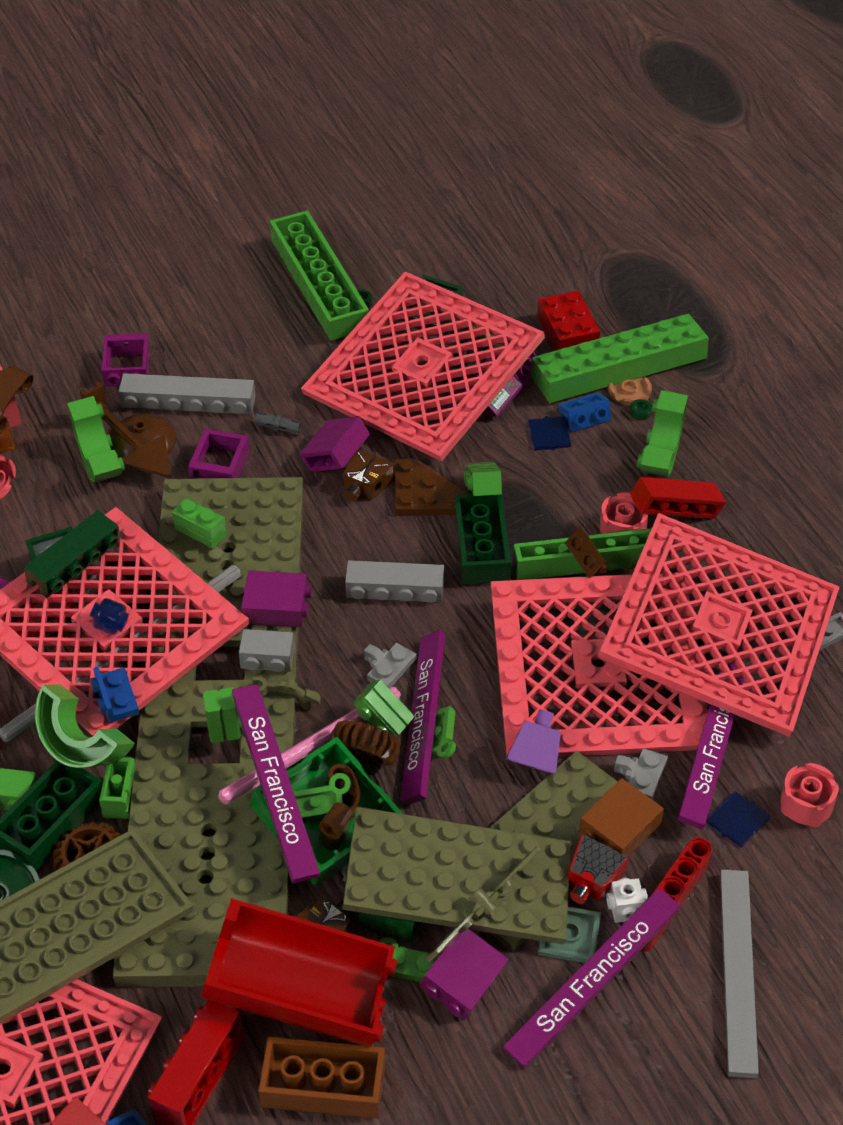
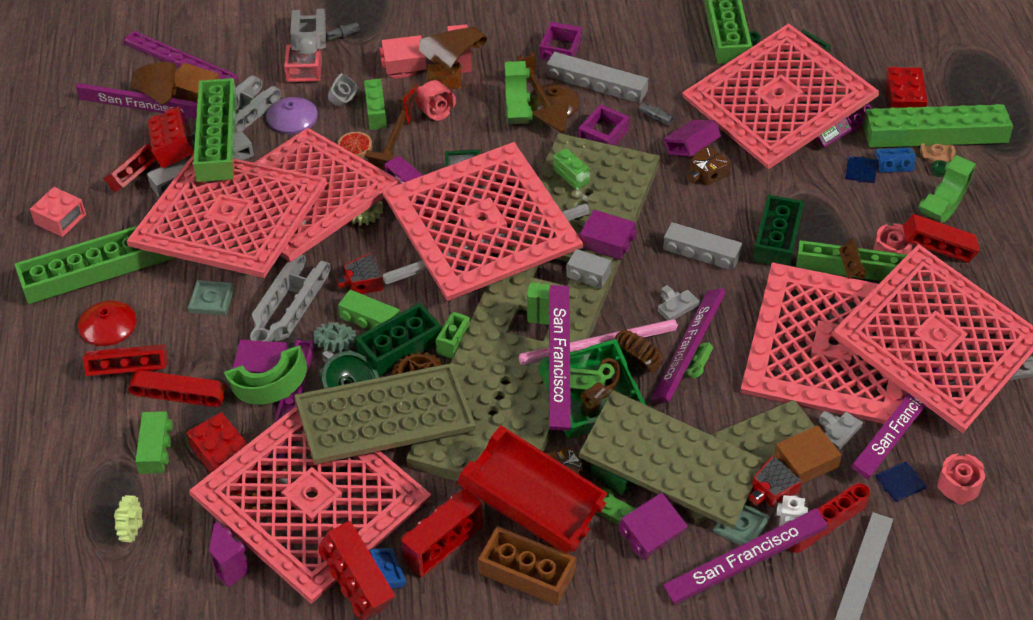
camera: 20 degrees right, 0 degrees up
(65, 741) = (424, 287): bright green brick -> none
(72, 553) = (471, 165): dark green brick -> none
(109, 616) = (483, 215): clear blue head -> none
(115, 694) = (469, 269): blue bracket -> none
(289, 686) = (606, 309): olive piece -> none
(382, 708) = (659, 331): bright green brick -> none
(422, 490) = (746, 186): reddish brown plate -> none
(483, 478) = (793, 188): bright green brick -> none
(483, 903) = (681, 480): olive piece -> none
(536, 744) = (764, 385): medium lavender torso -> none

